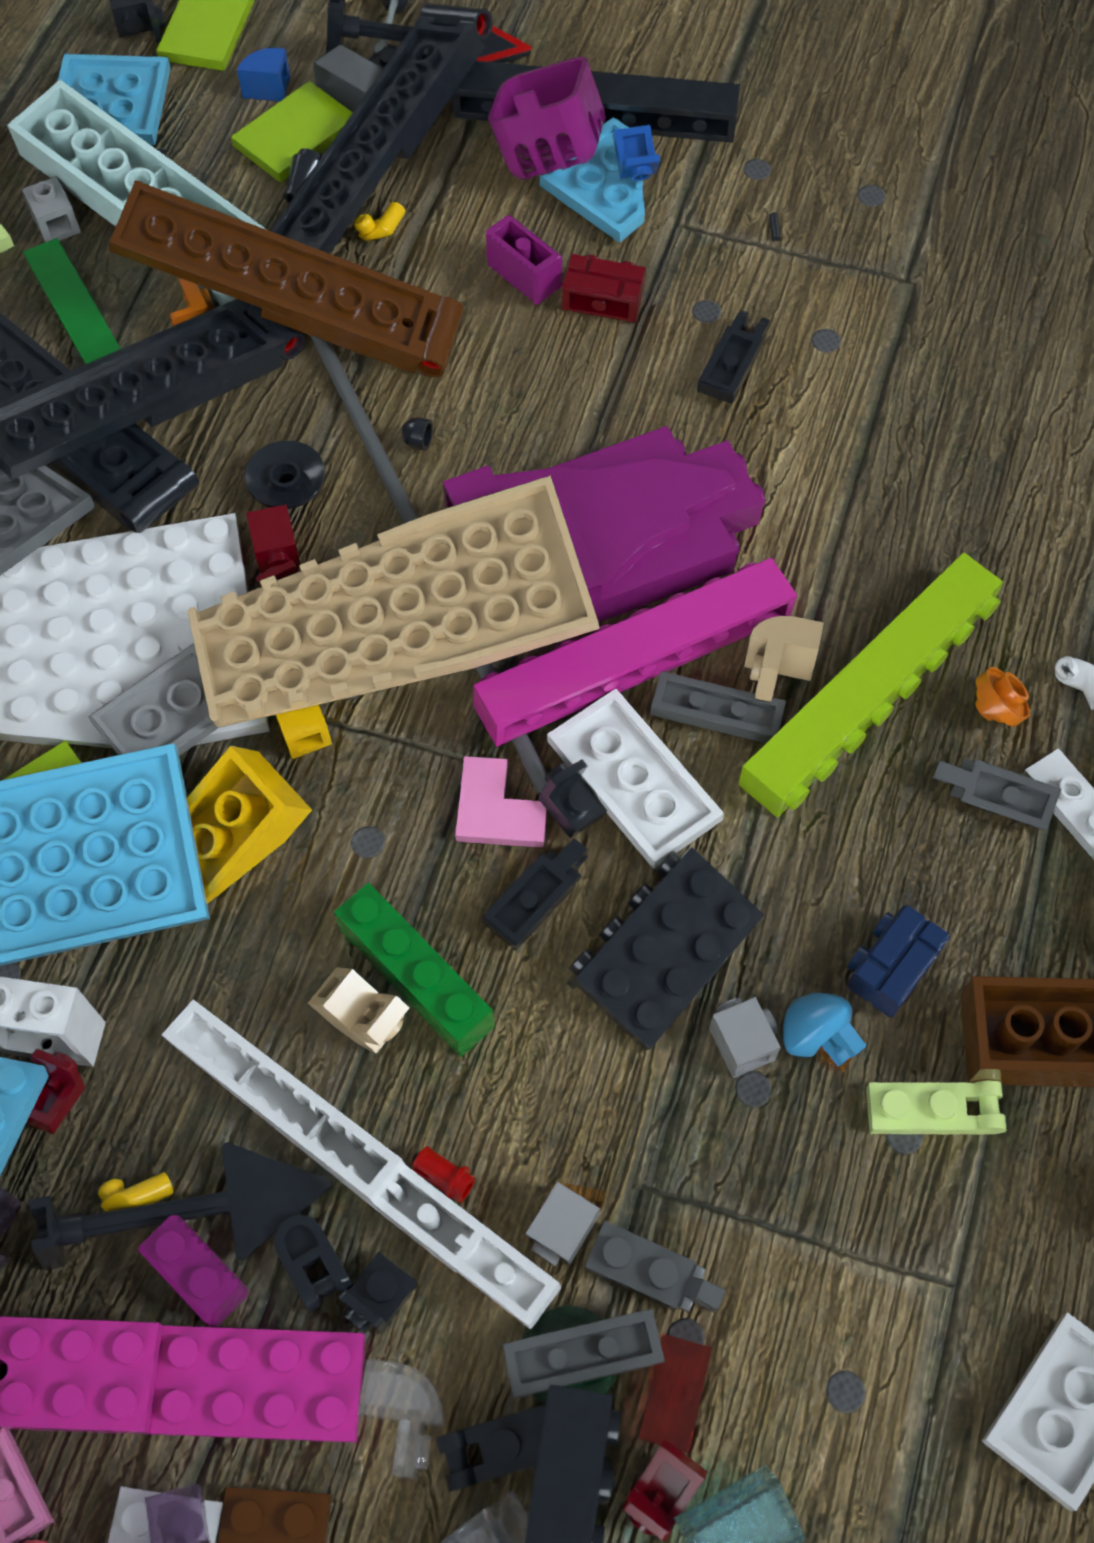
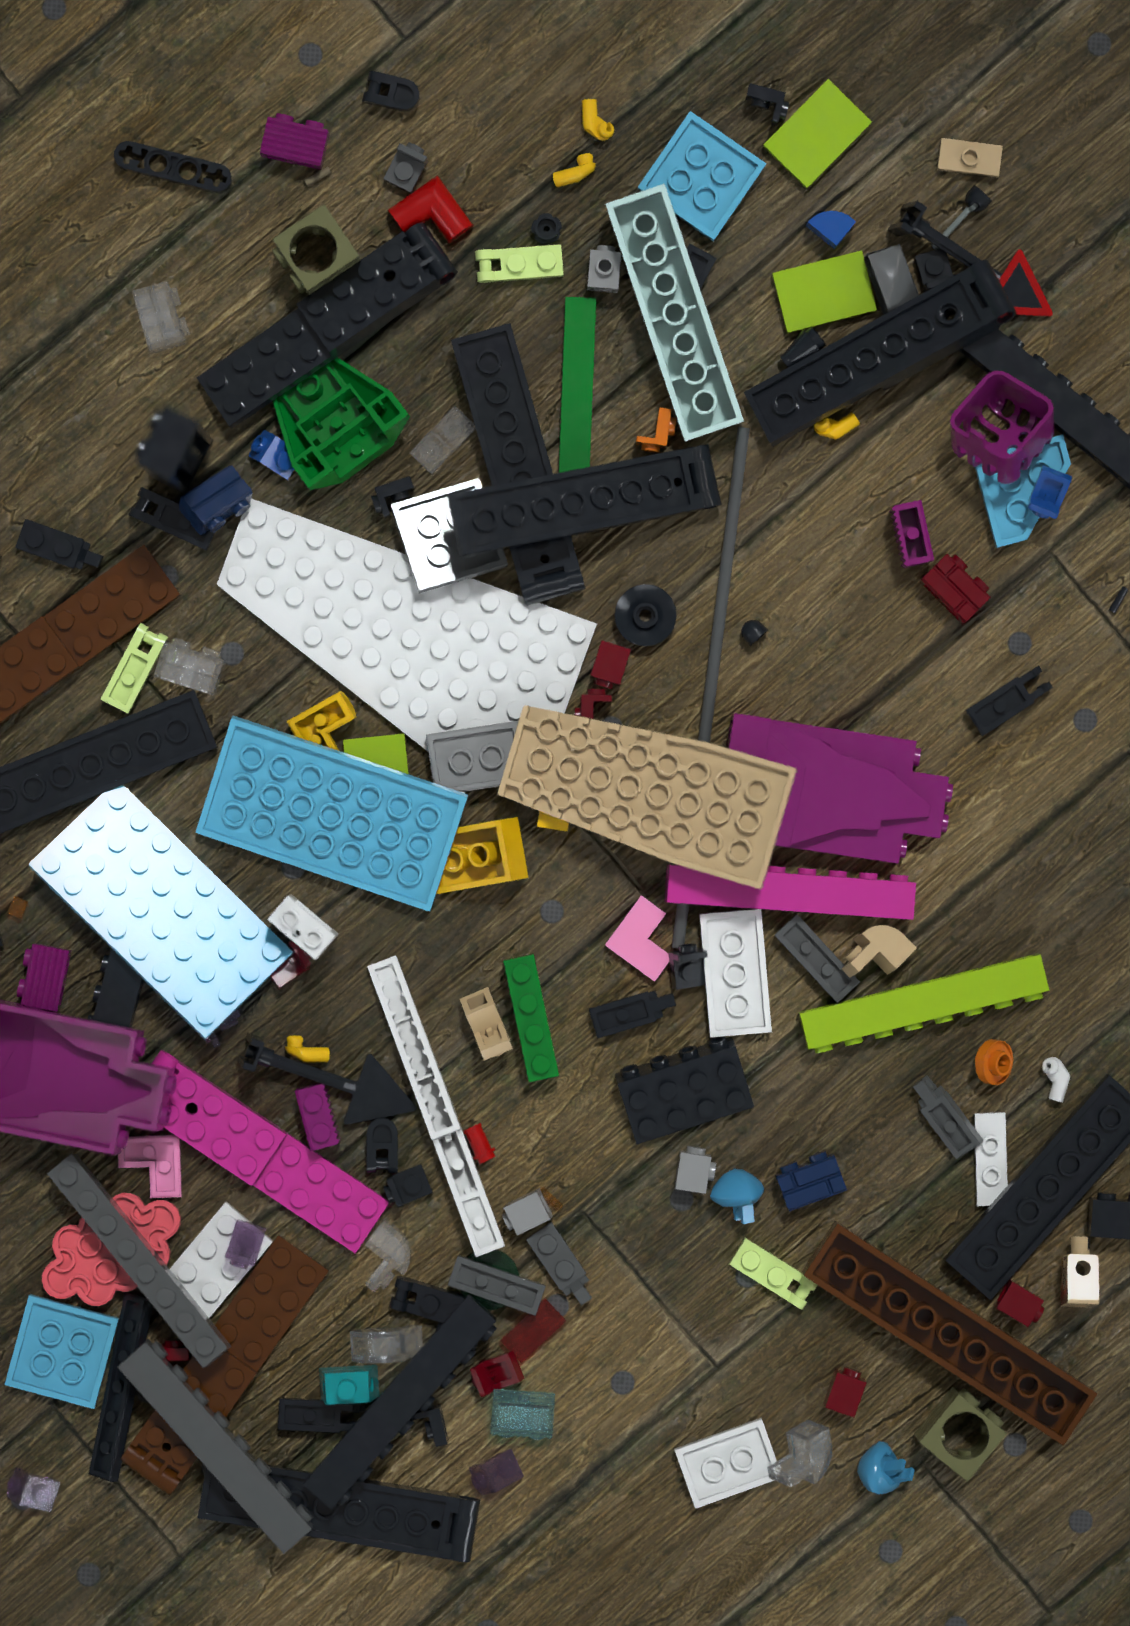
camera: 35 degrees right, 25 degrees up
(289, 281) = (730, 472): reddish brown hinge -> none

